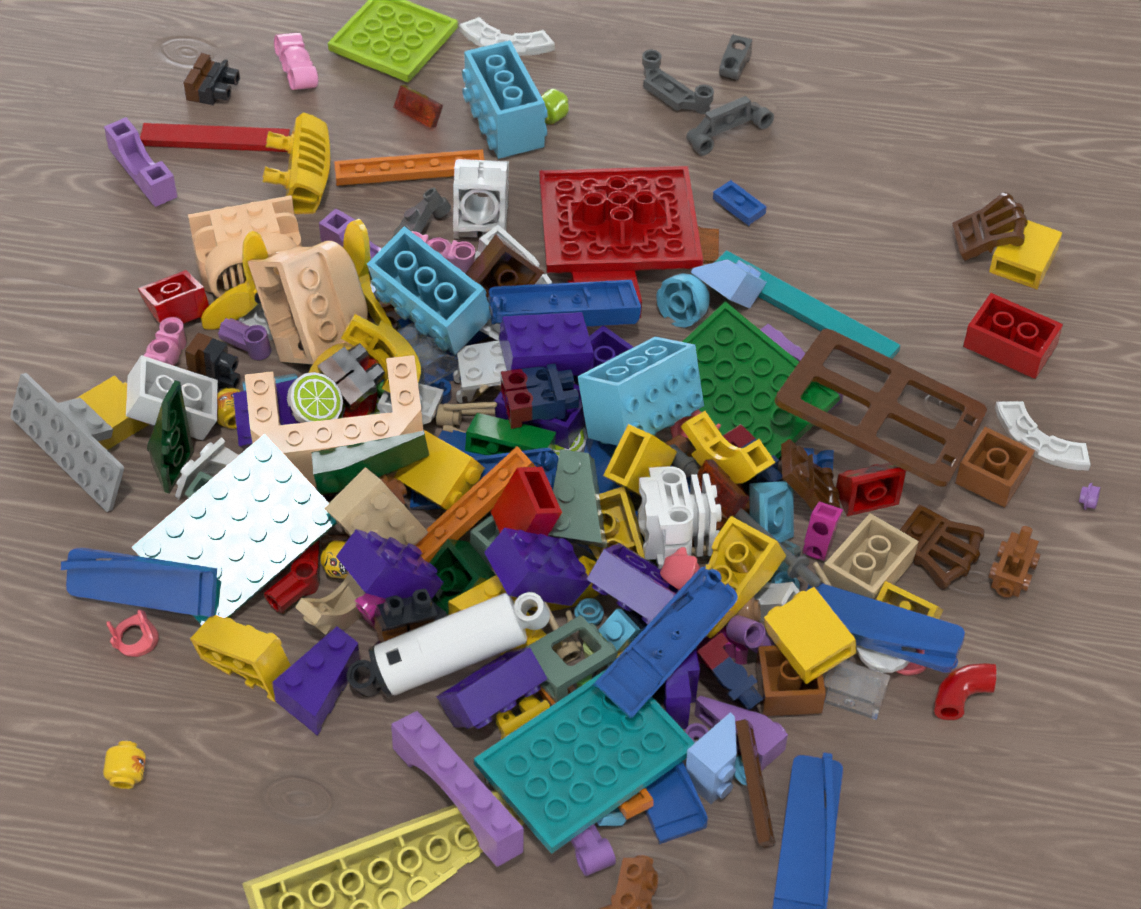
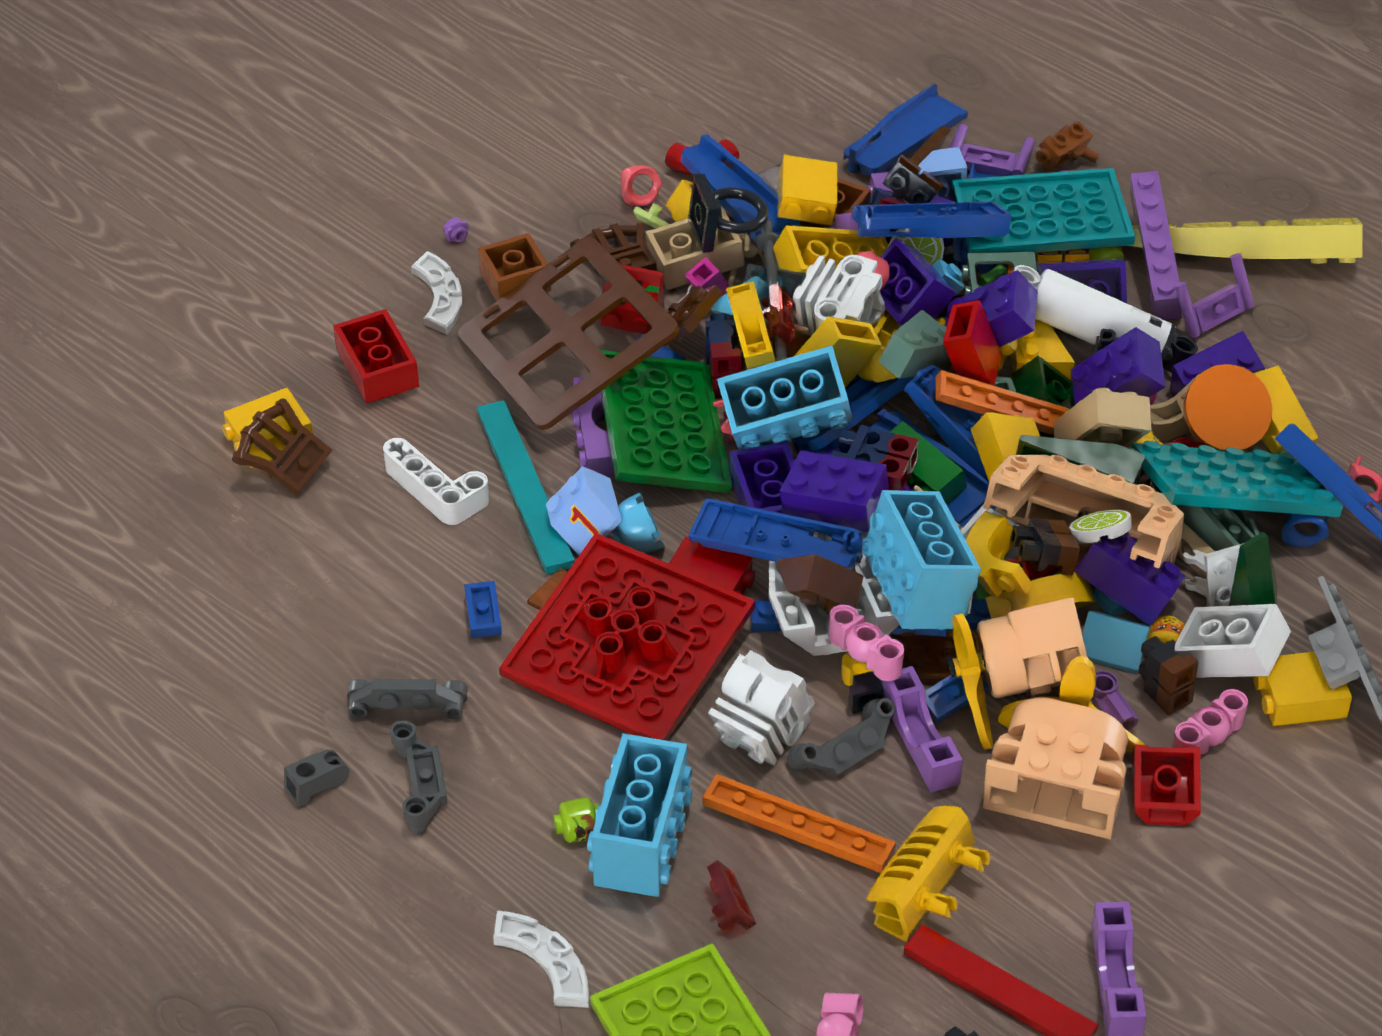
camera: 145 degrees left, 5 degrees down
(277, 596) = (1227, 407): none -> orange tile
(366, 752) = (1218, 305): none -> medium lavender plate
(701, 844) = (991, 160): none -> medium lavender plate
(722, 693) = (905, 183): none -> black hips
(866, 541) = (706, 212): none -> black tile
(869, 267) = (445, 498): none -> white beam
(940, 591) = (651, 217): none -> yellowish green piece
(986, 609) = (627, 177): none -> coral piece
(1016, 559) = (574, 208): dark orange brick -> none

